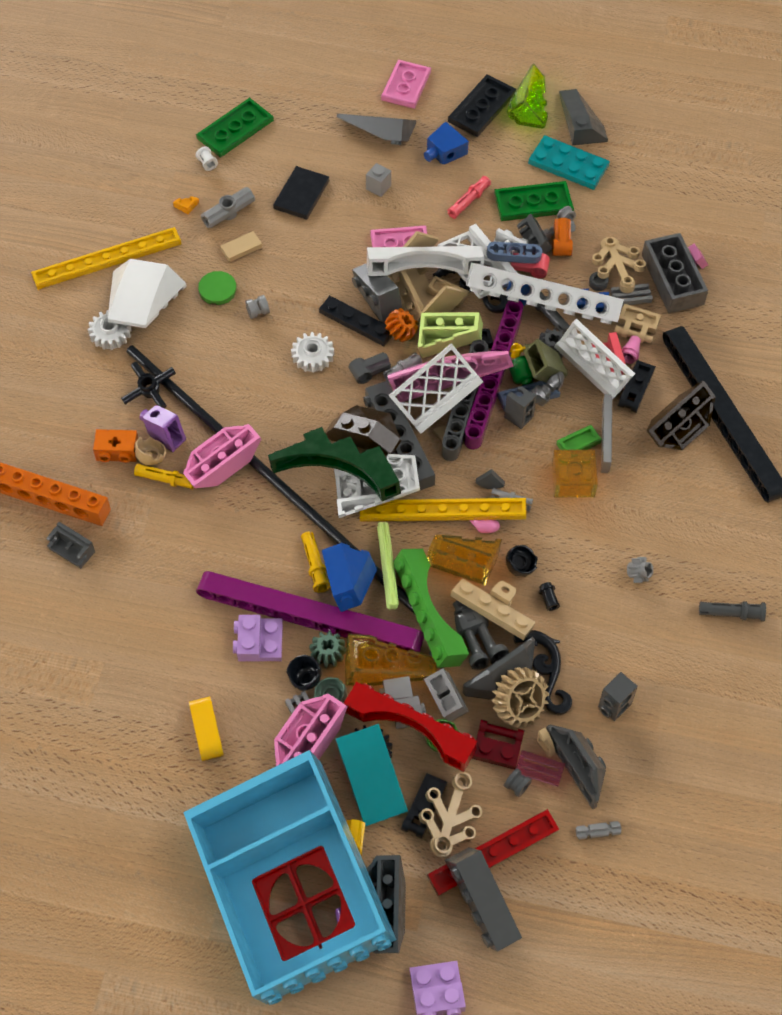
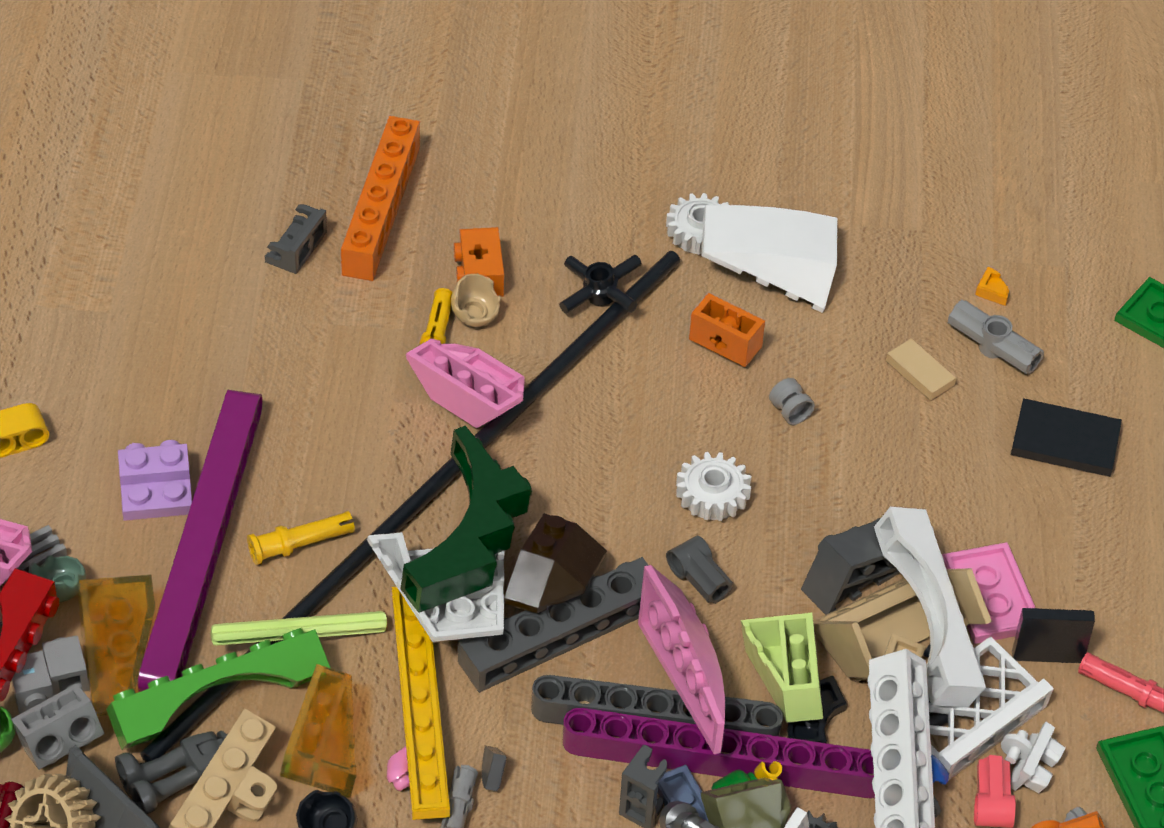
camera: 80 degrees right, 10 degrees down
(106, 258) = (852, 206): yellow tile -> none
(164, 427) = (519, 310): medium lavender torso -> none
(201, 326) = (726, 330): none -> orange brick
(205, 156) = (1096, 296): white bush -> none
(217, 287) = (824, 349): bright green tile -> none
(304, 672) = (93, 541): black hair -> none
(333, 648) = (140, 560): sand green gear -> none
(349, 574) = (258, 564): blue slope -> none
(355, 320) = (800, 546): black plate -> none
(378, 180) = (1122, 538): light grey brick -> none
(401, 325) = (788, 587): orange gear -> none
(406, 363) = (715, 620): light grey pin -> none
(442, 216) = (1053, 635): none -> black tile
(444, 403) = (632, 668): white fence -> none
(508, 257) = (990, 764): sand blue beam -> none
(534, 233) = (1059, 795): dark grey hinge -> none

